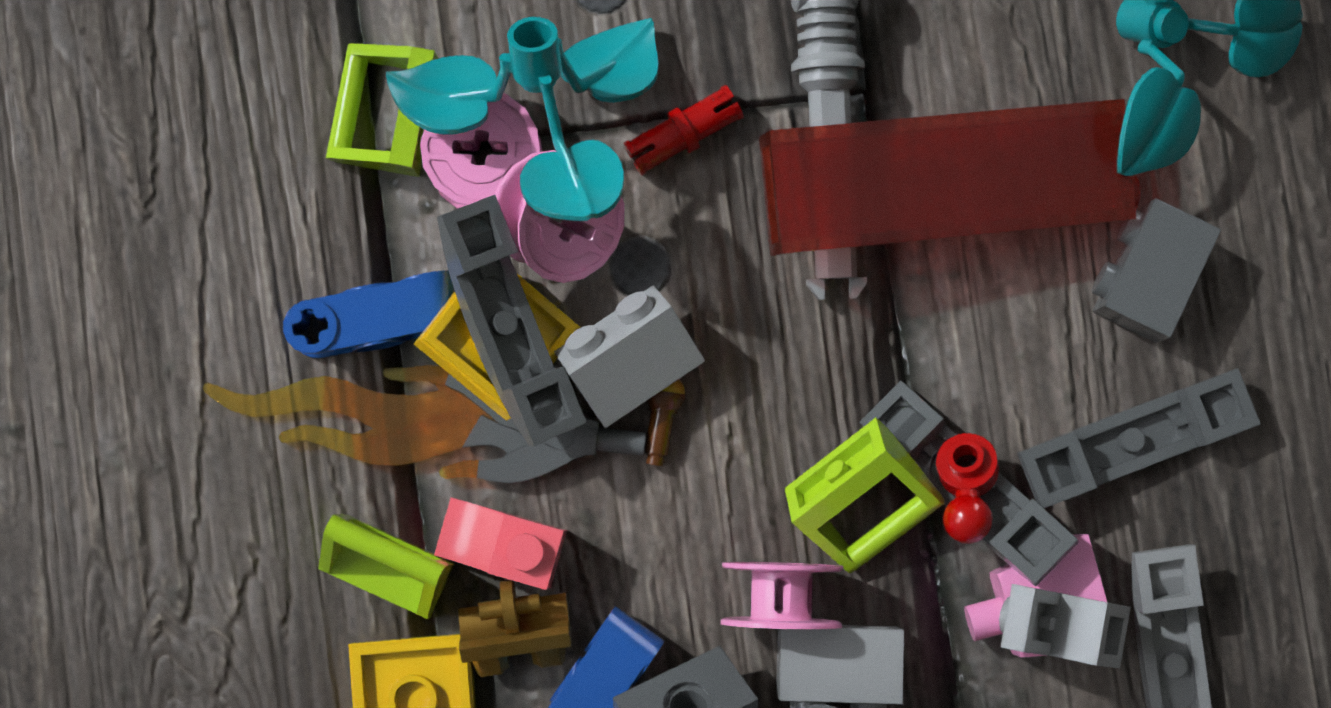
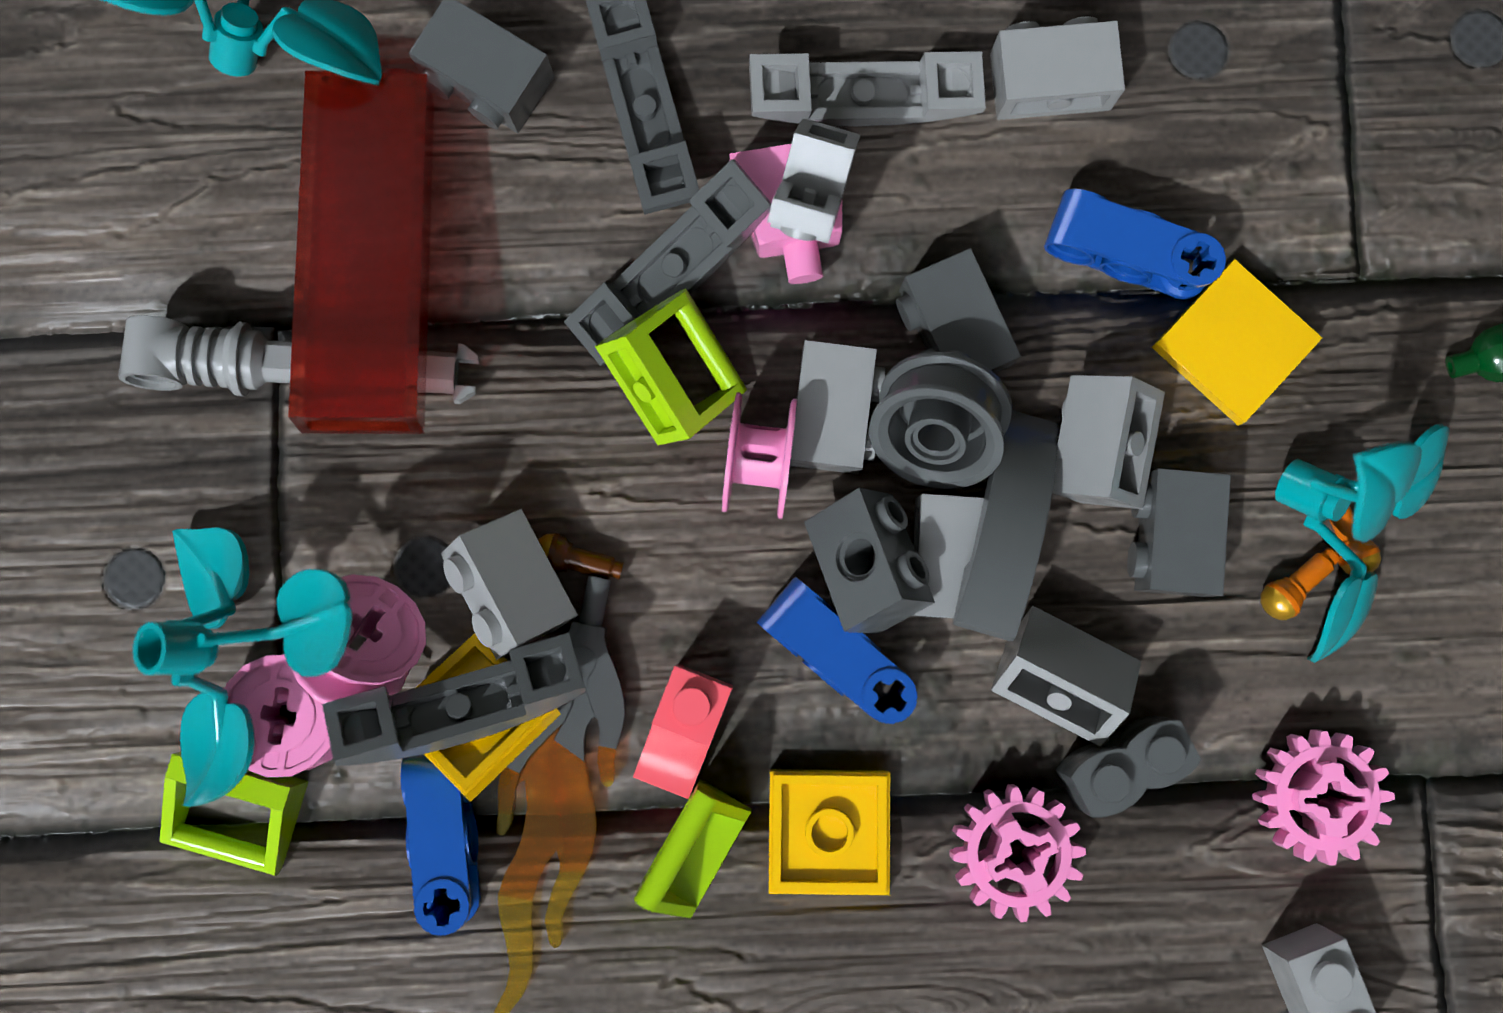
camera: 85 degrees left, 0 degrees up
(514, 628) = (767, 724): pearl gold hips -> none
(683, 130) = (290, 509): red pin -> none
(967, 516) = (700, 264): red plate -> none

